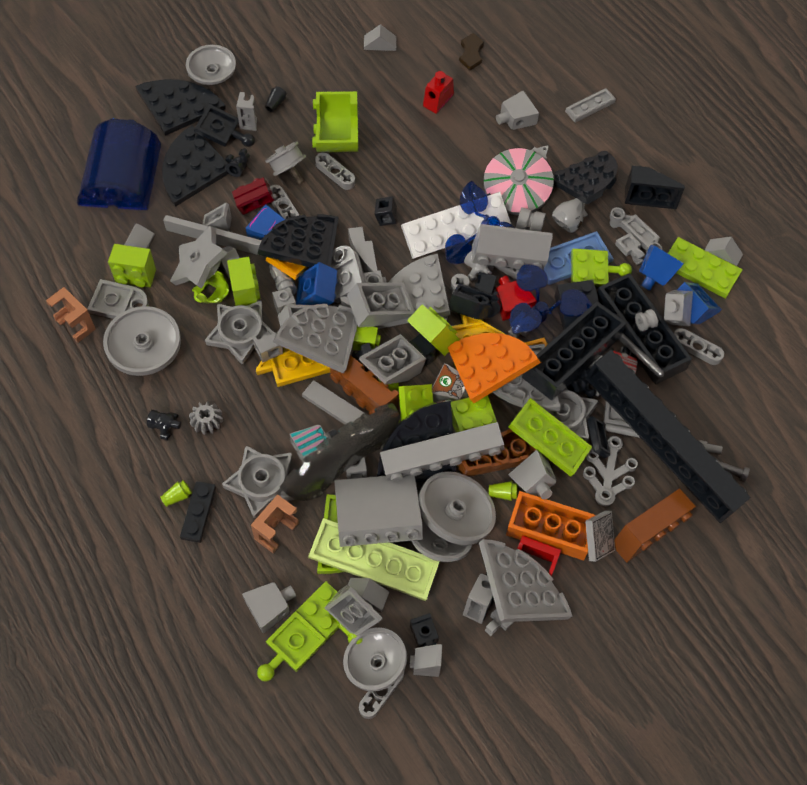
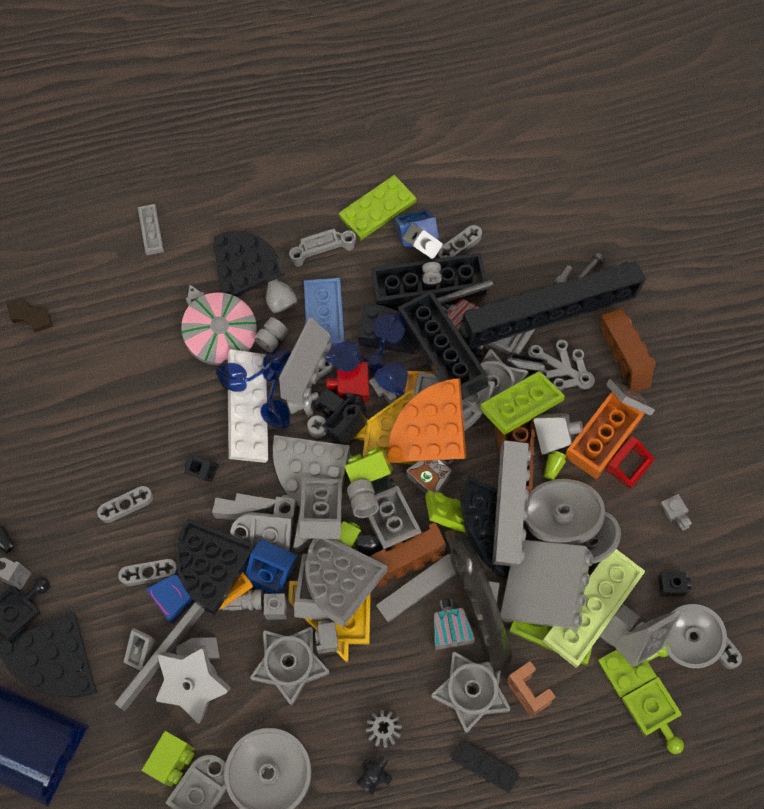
camera: 65 degrees left, 5 degrees up
(139, 237) = (132, 746): light grey slope -> none
(176, 493) = (460, 783): lime cone -> none
(219, 294) = (236, 674): lime helmet -> none
(236, 166) = (73, 605): black piece -> none
(243, 281) = (238, 642): lime brick -> none
(253, 195) = (126, 600): dark red brick -> none
(268, 604) = (608, 722): light grey torso -> none
(286, 159) = (96, 549): light grey wheel -> none
(336, 122) = (72, 482): lime cylinder -> none
(399, 329) = (362, 498): none -> light grey wheel
(427, 660) = (706, 588): light grey slope -> none
(438, 92) = (71, 362): red torso -> none
(471, 415) = (477, 464): lime brick -> none
(479, 599) = (655, 520): light grey torso -> none
(518, 112) = (132, 298): light grey torso -> none
(521, 585) = (659, 481): light grey plate -> none
(594, 266) = (344, 299): lime plate -> none
(630, 245) = (331, 258): light grey plate -> none
(652, 189) = (279, 213): black slope -> none
(658, 267) = (370, 242): blue torso -> none
(725, 249) = (366, 181): light grey slope -> none

